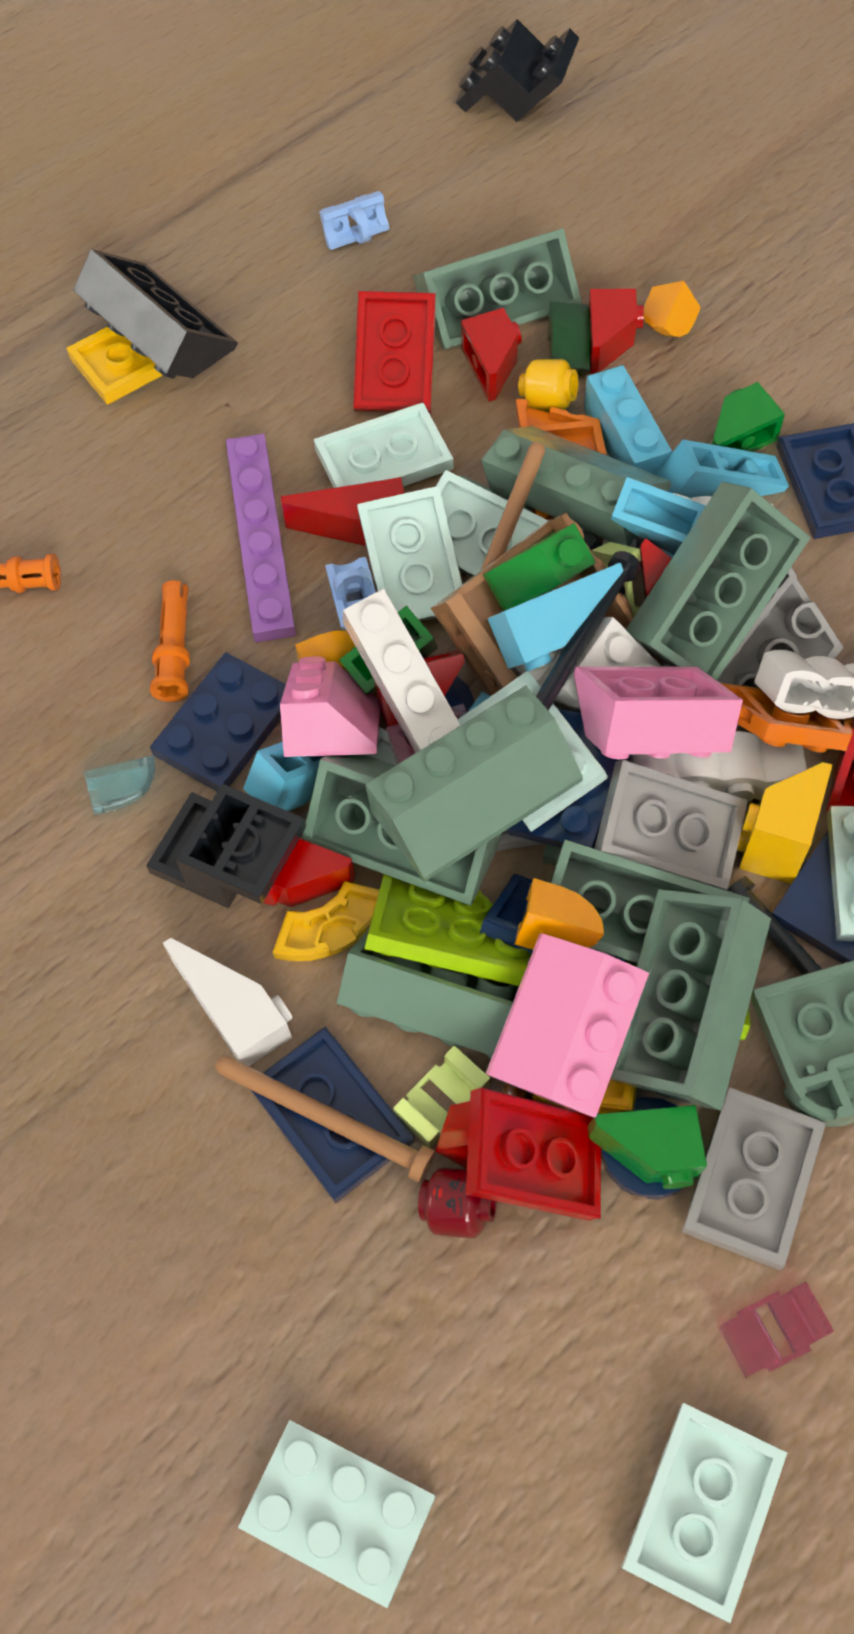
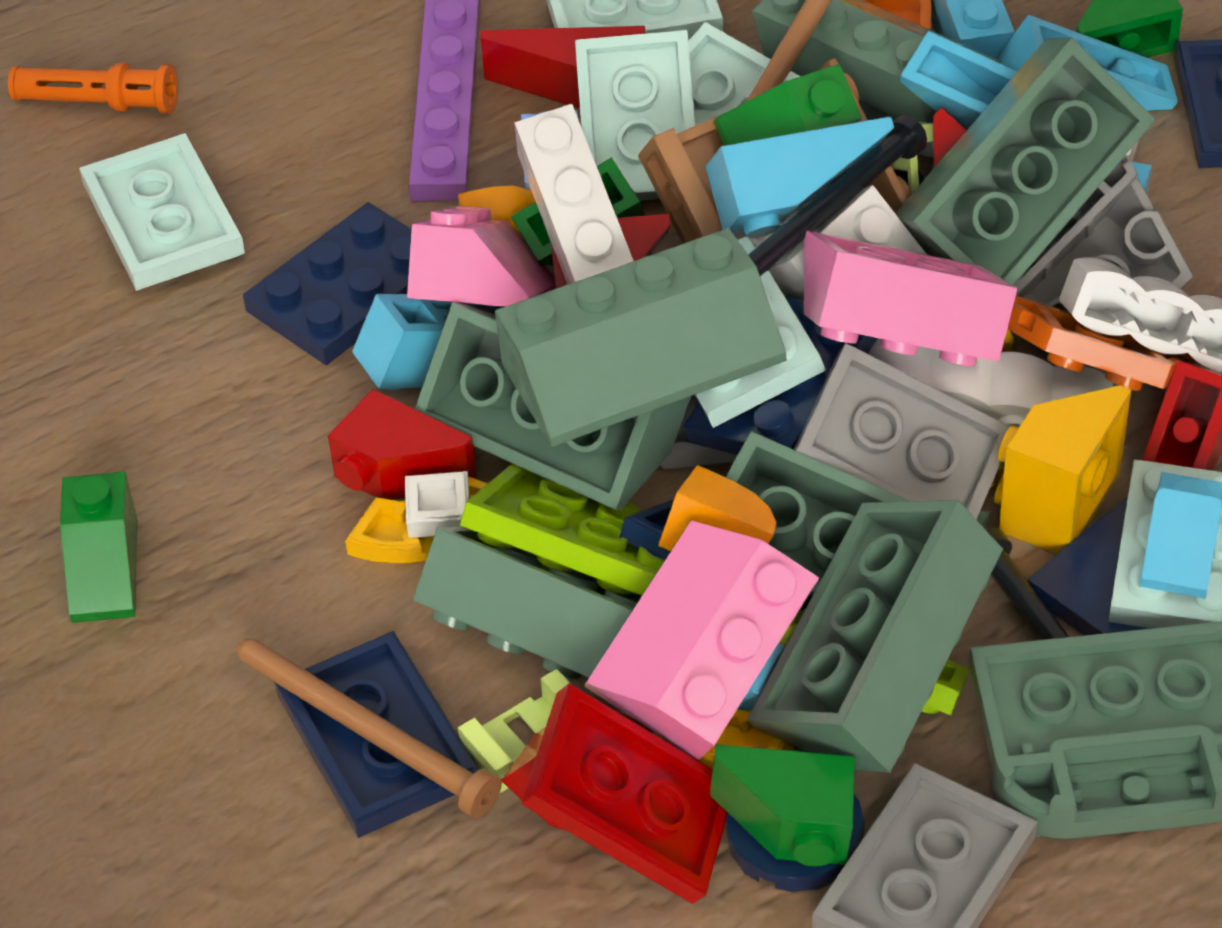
camera: 10 degrees right, 15 degrees down
(72, 681) = (161, 211): none -> light aqua plate
(90, 989) = (99, 546): none -> slope
(119, 783) = (192, 326): clear light blue brick -> none
(171, 655) = (296, 197): orange pin -> none
(227, 846) = (312, 404): black bracket -> none
(235, 1004) = (279, 586): white slope -> none
(336, 914) = (435, 501): none -> white tile
(449, 1209) = (513, 846): dark red head -> none

